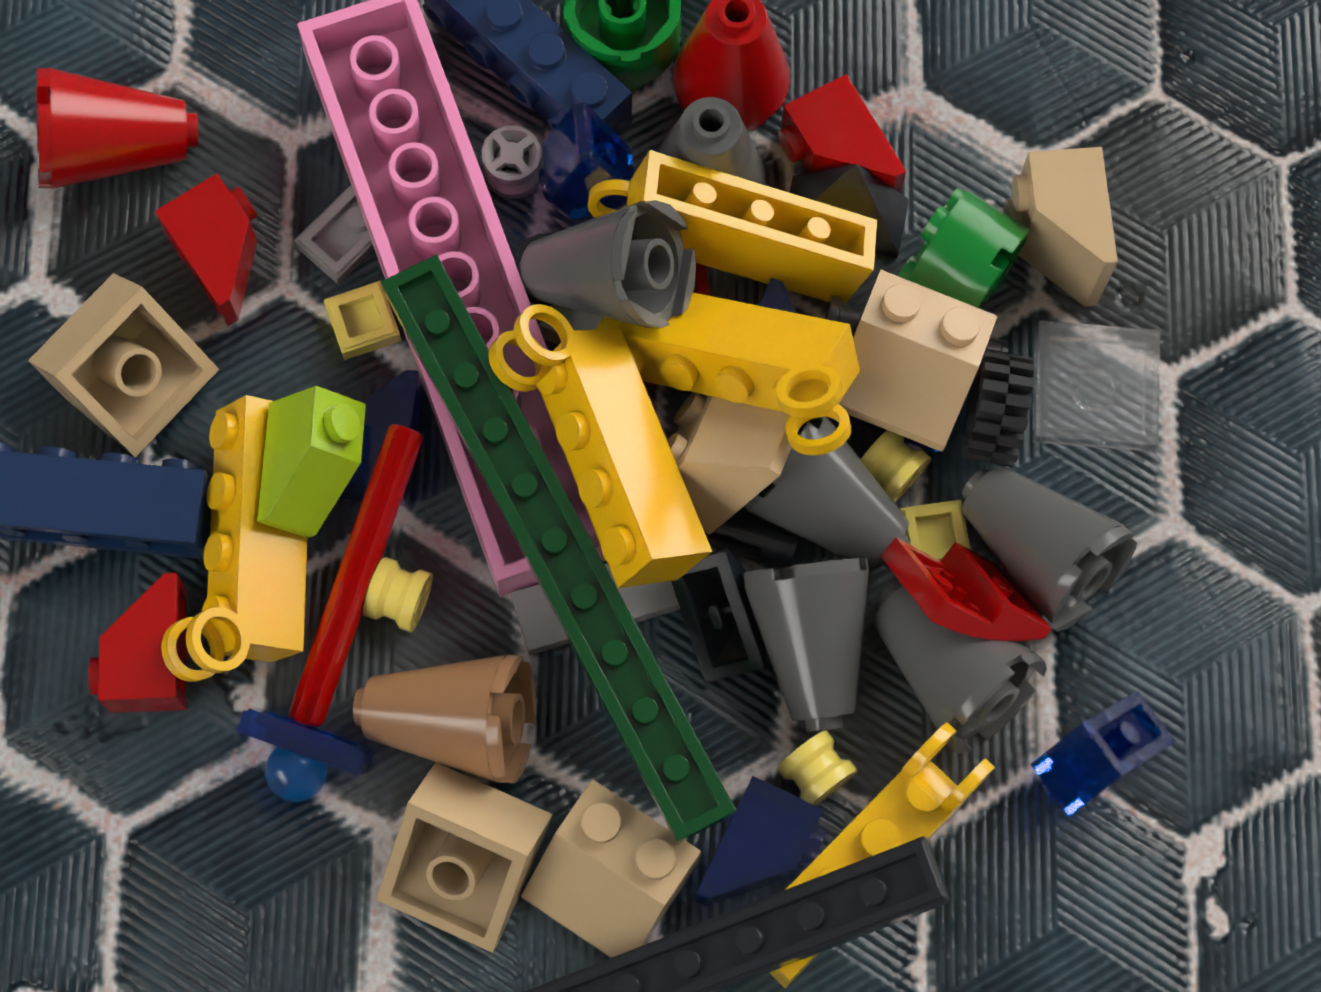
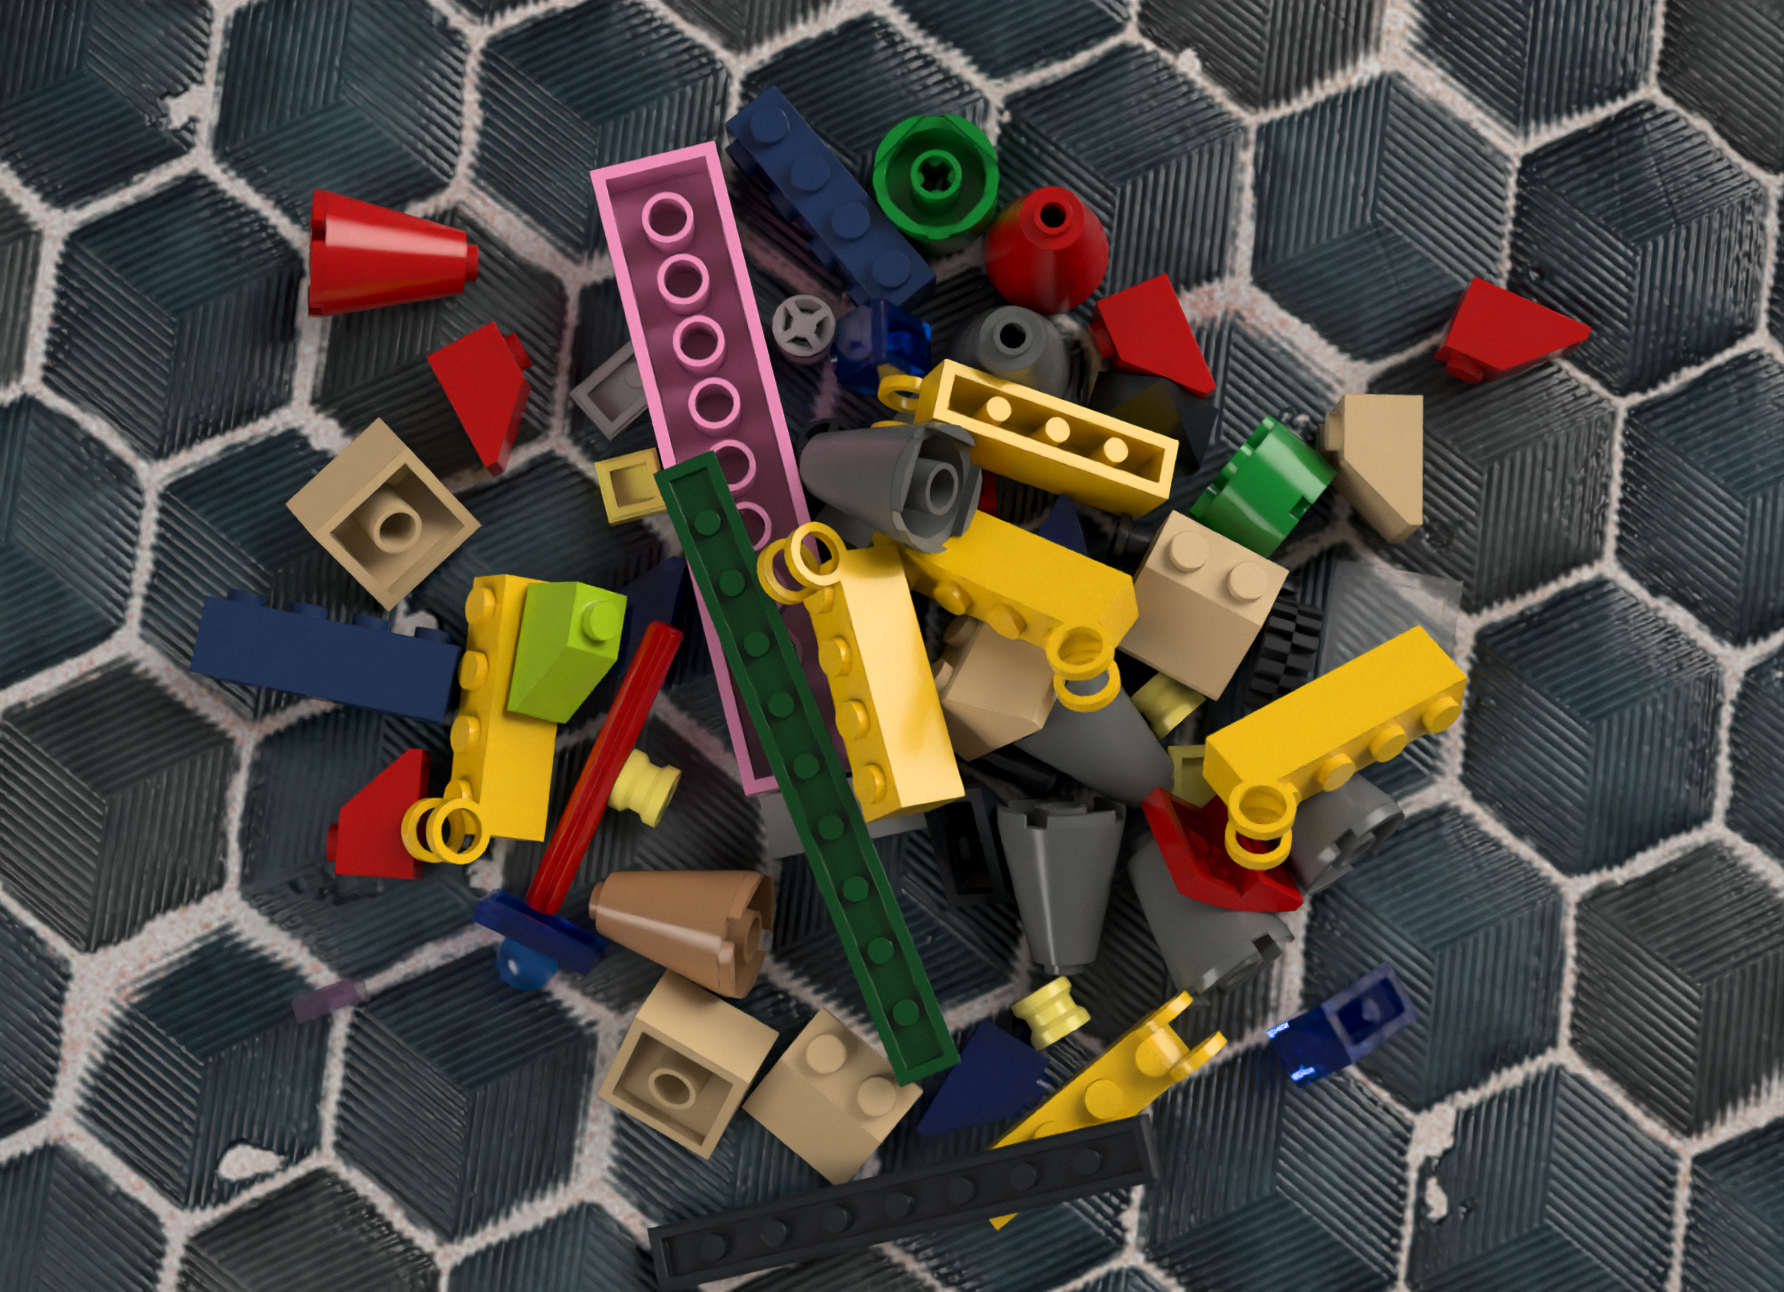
camera: 10 degrees right, 10 degrees up
(102, 829) = (330, 1000): none -> clear purple tile
(1054, 465) = (1327, 734): none -> yellow hinge
(1168, 105) = (1503, 334): none -> red slope

